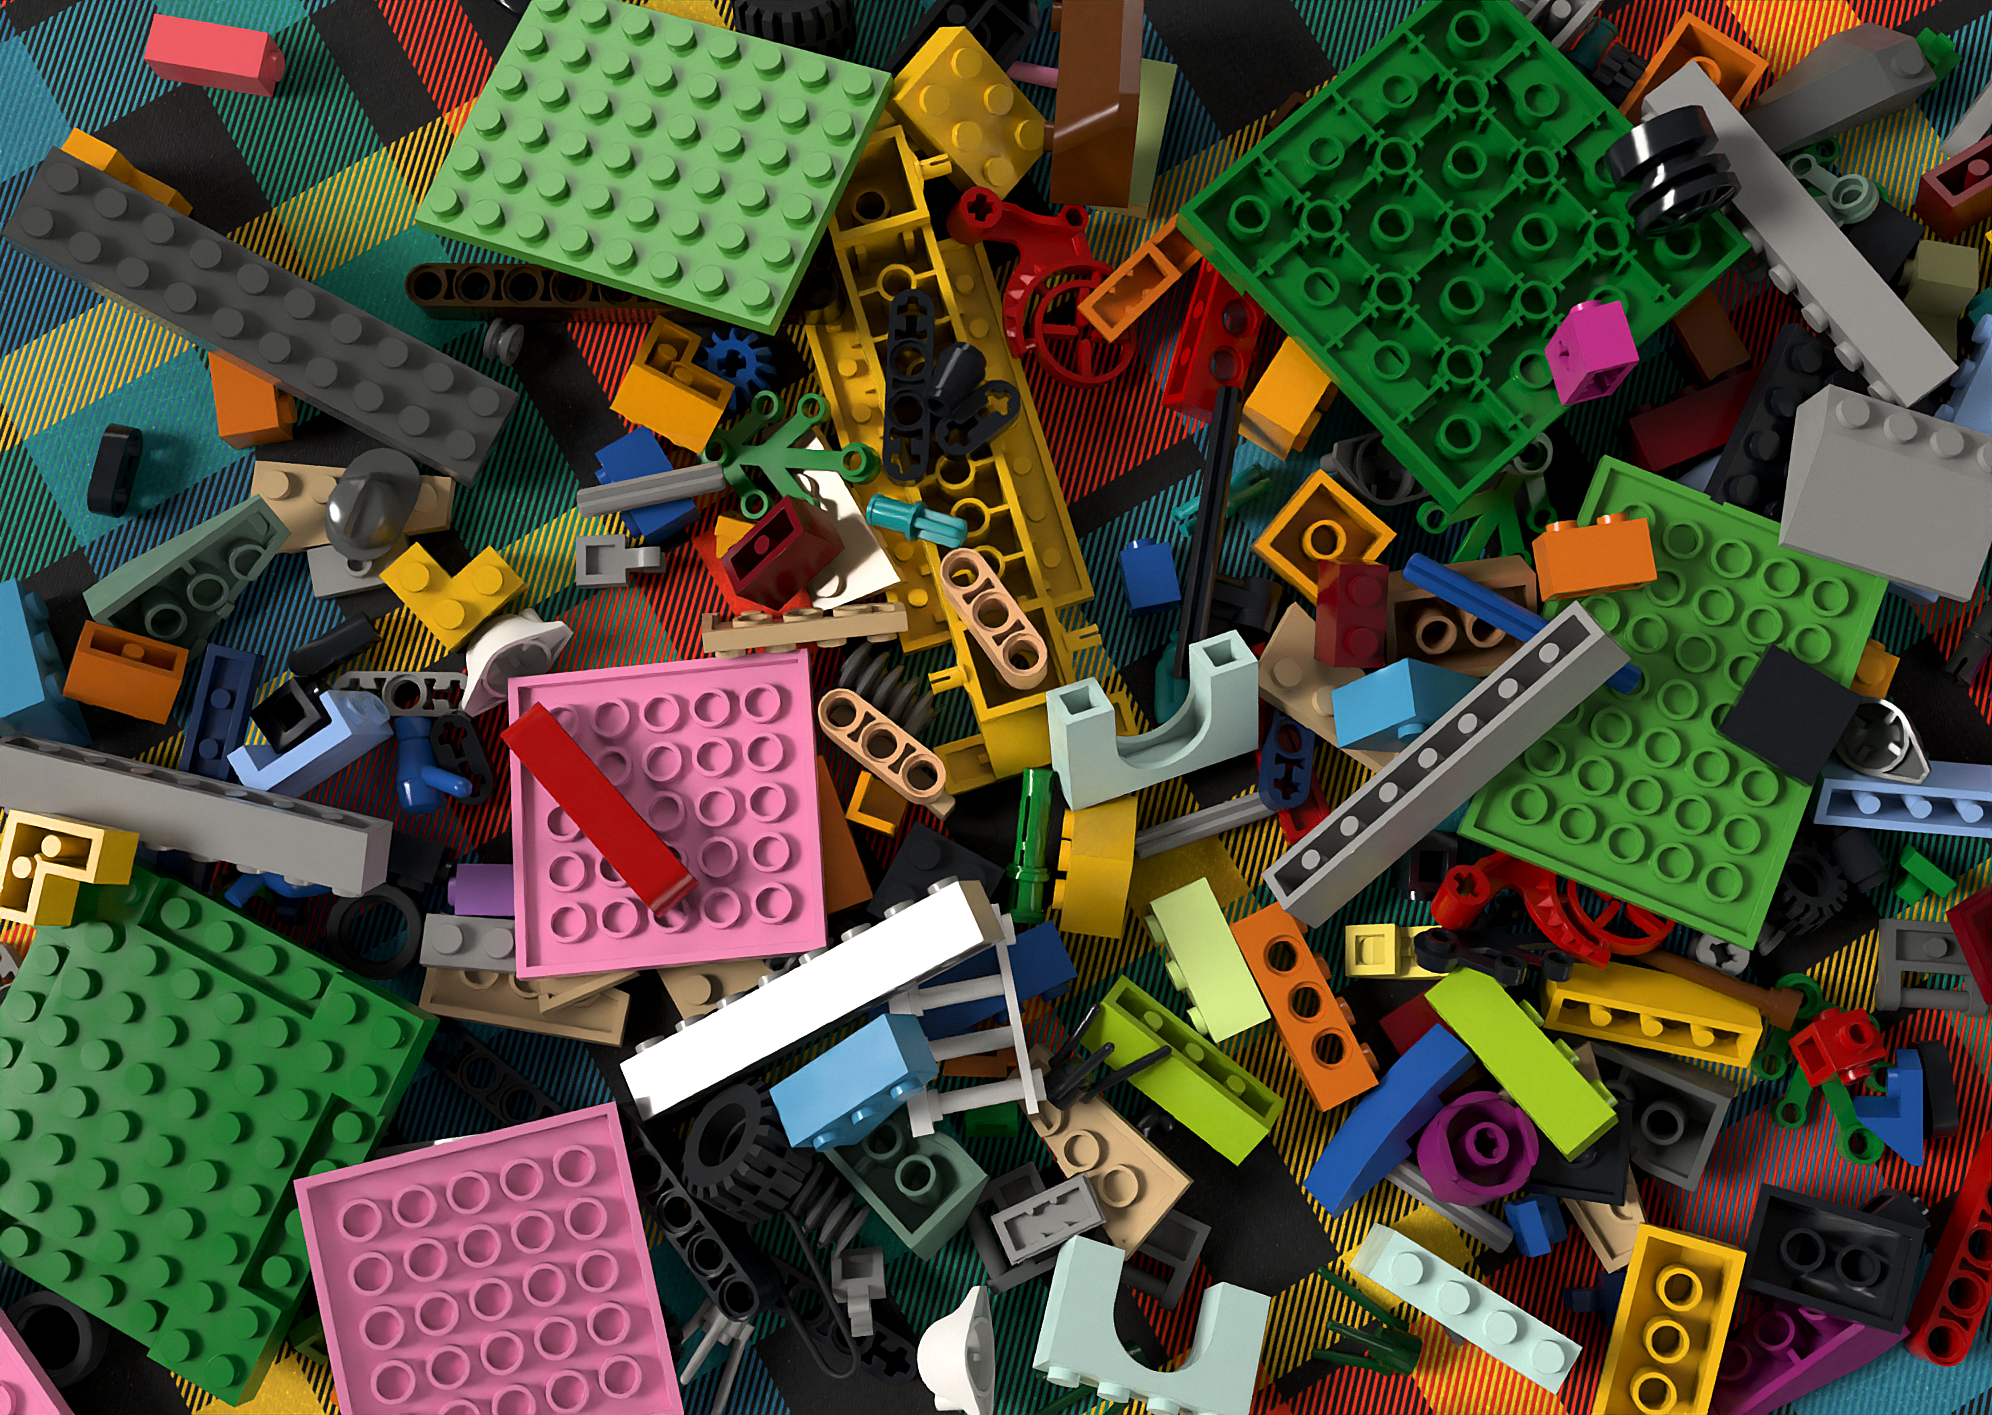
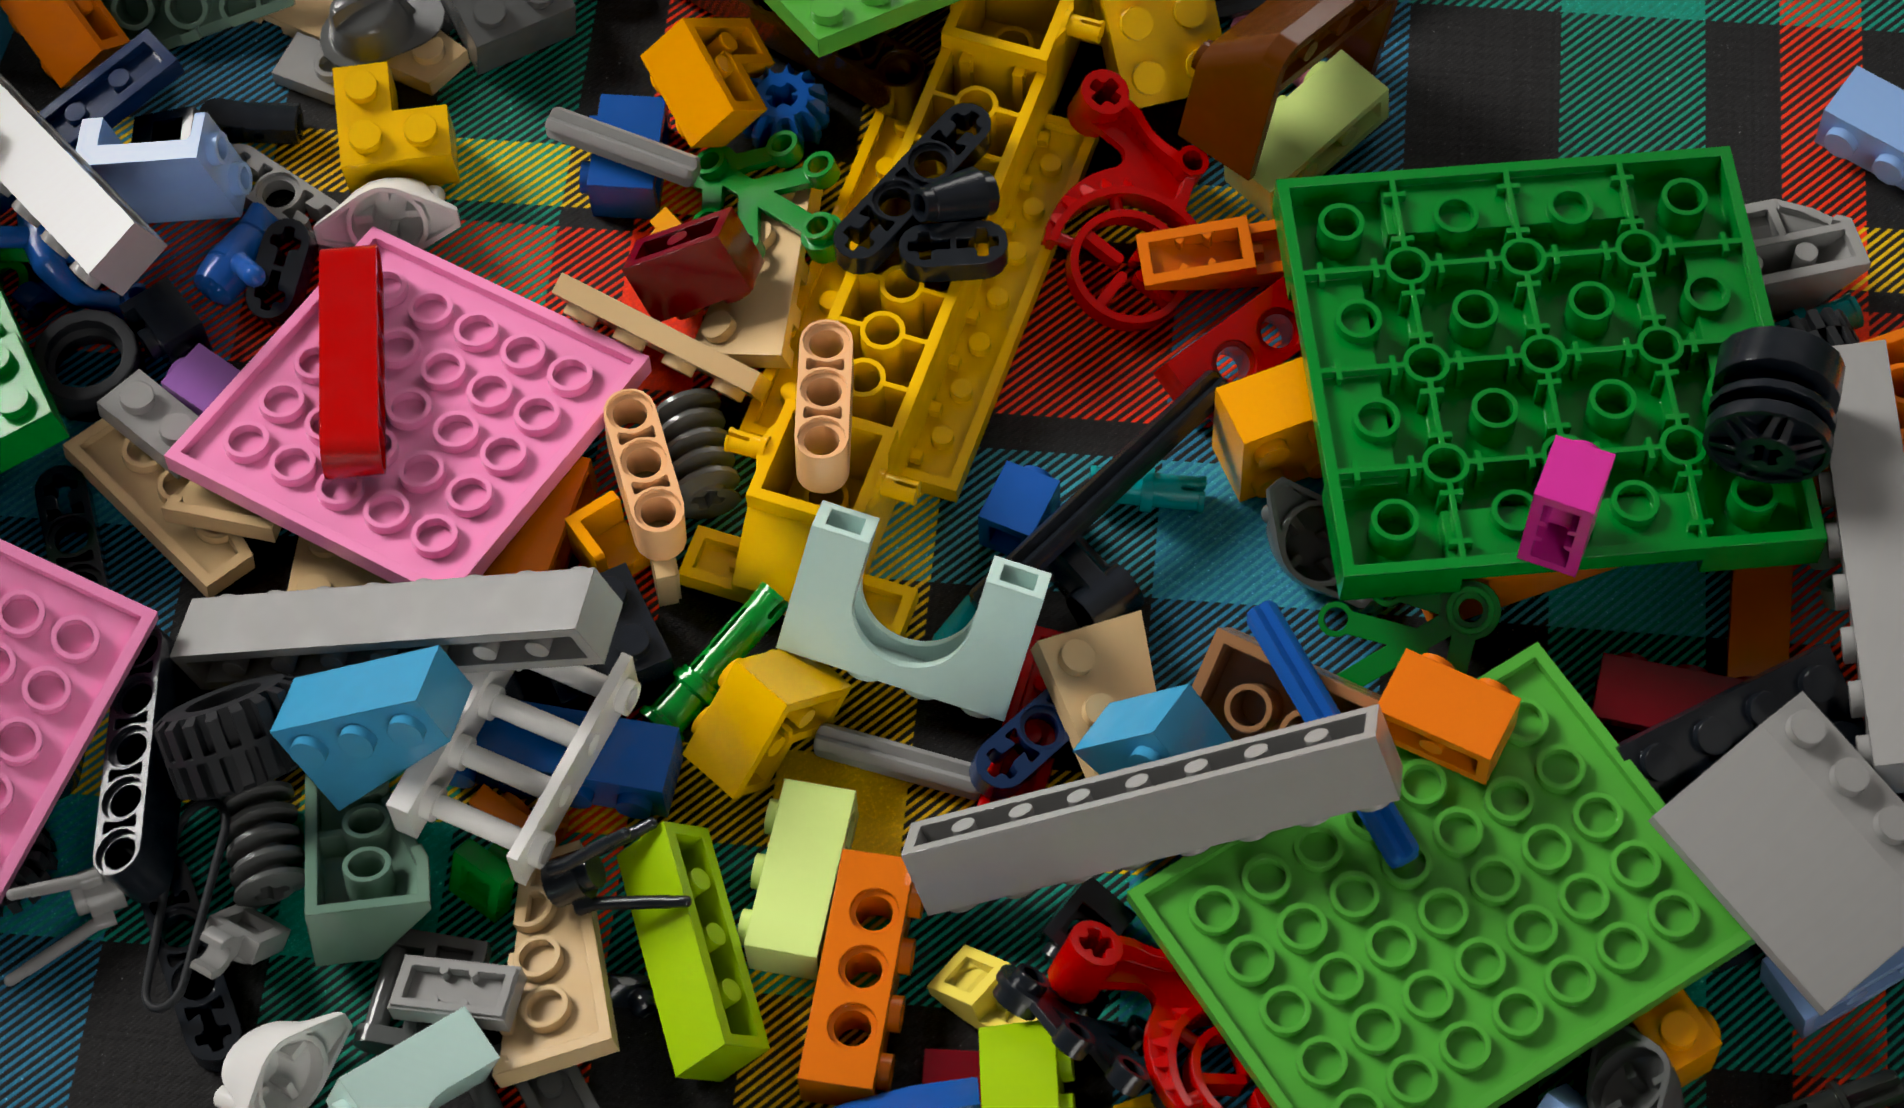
camera: 40 degrees right, 20 degrees down
(608, 560) = (545, 195): light grey plate -> none
(916, 521) = (825, 293): teal axle -> none
(1318, 524) = (1206, 570): light orange brick -> none
(1351, 613) = (1177, 630): dark red brick -> none
(1789, 715) = (1545, 993): black tile -> none

